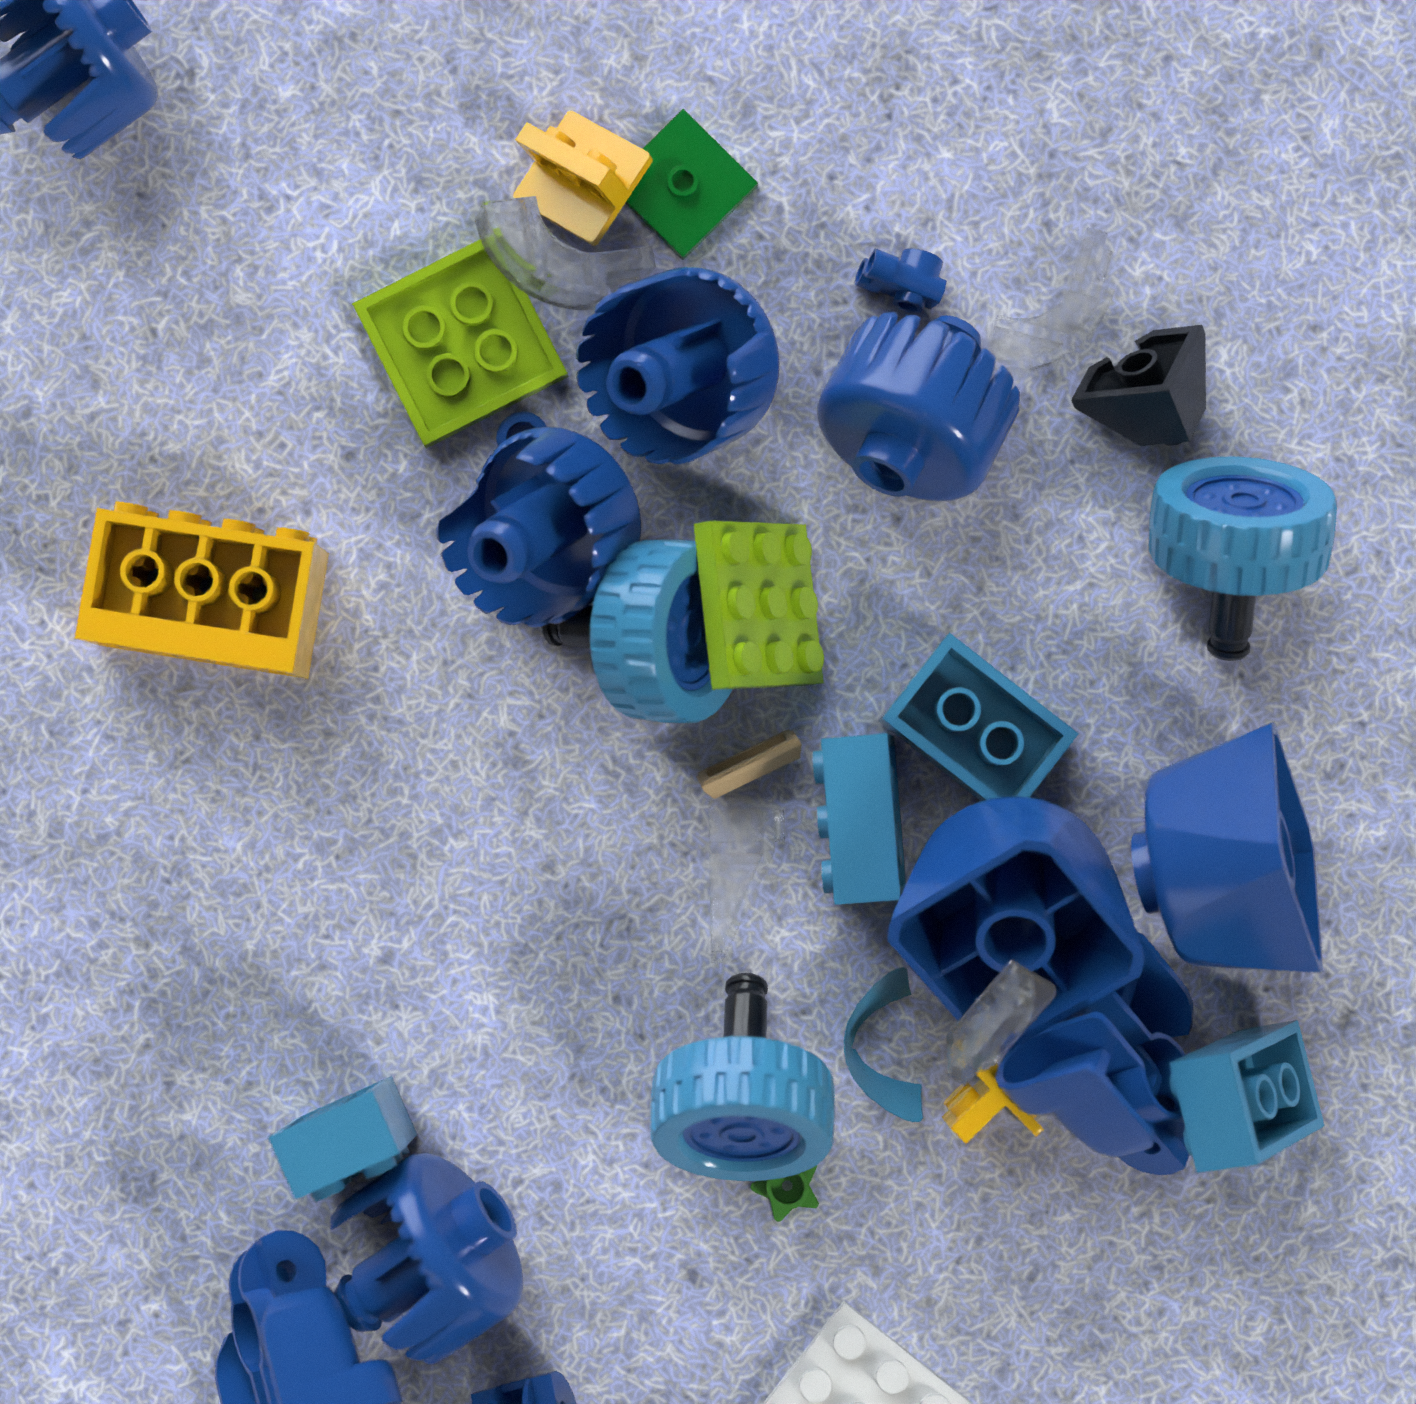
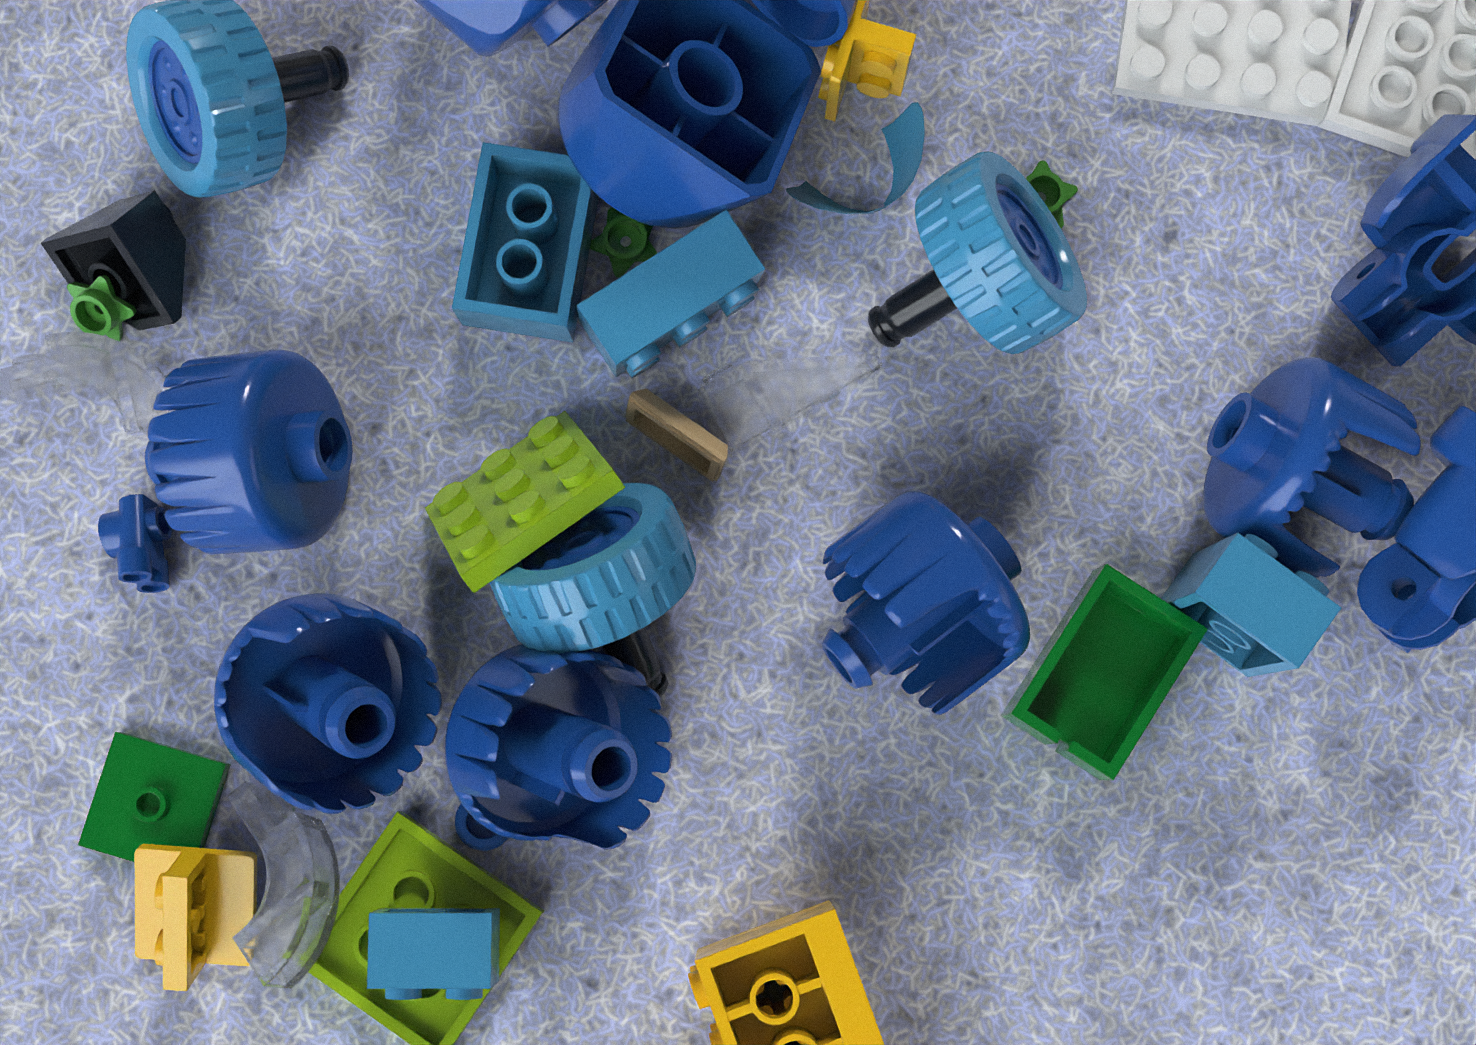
camera: 120 degrees left, 5 degrees down
(359, 998) = (1104, 672): none -> green piece
(439, 345) = (433, 951): none -> dark azure brick
(496, 886) = (930, 599): none -> blue piece
(929, 803) = (609, 243): none -> bright green plate
(996, 1021) = (791, 55): clear bracket -> none
(1120, 344) = (89, 317): none -> bright green plate

